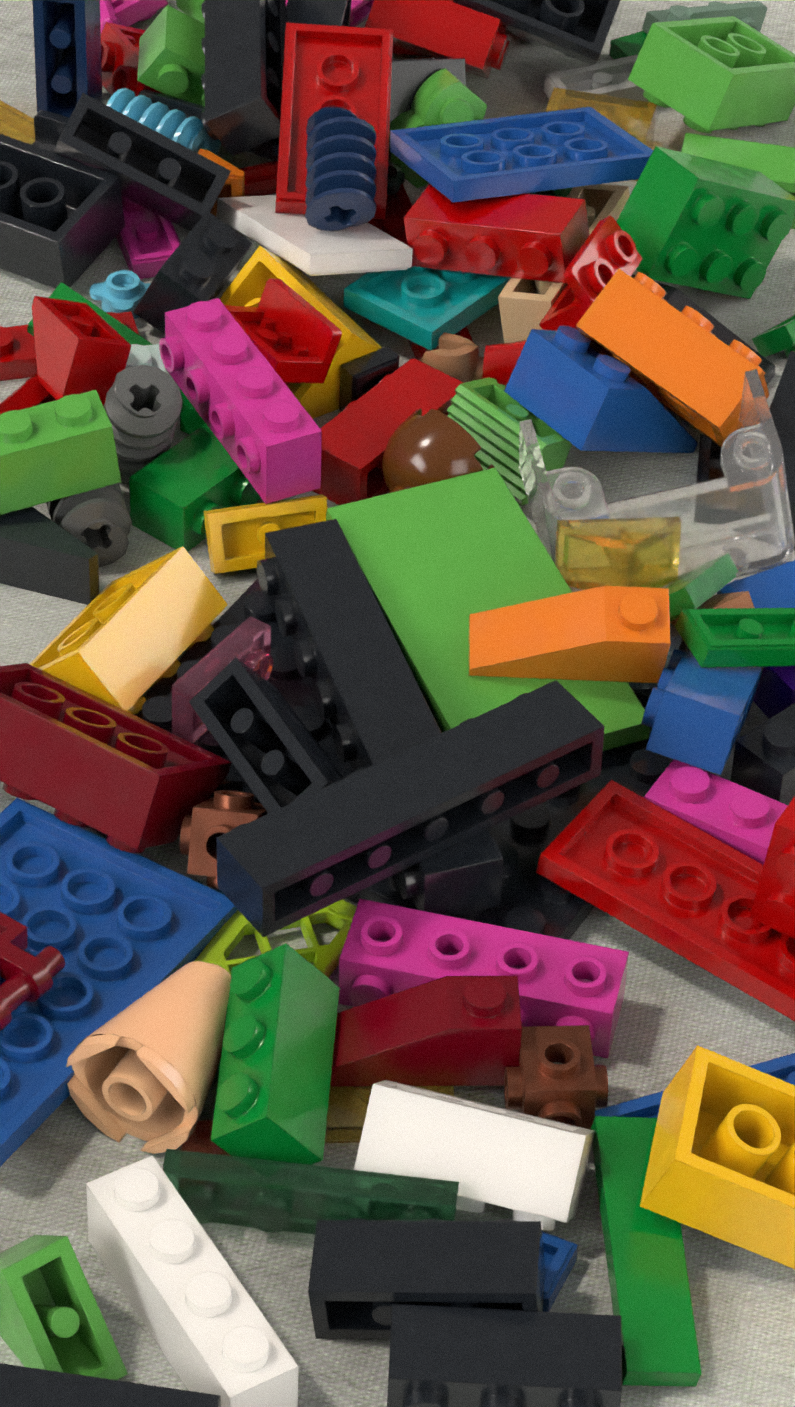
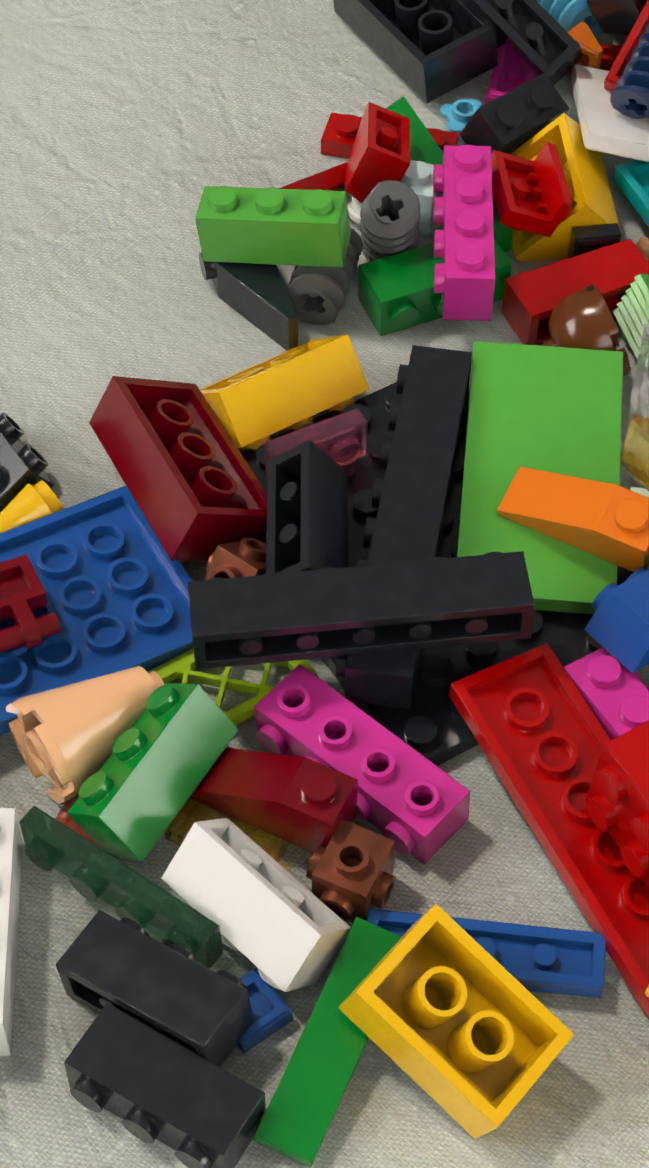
camera: 30 degrees right, 10 degrees up
(239, 532) = (432, 331): yellow plate -> none

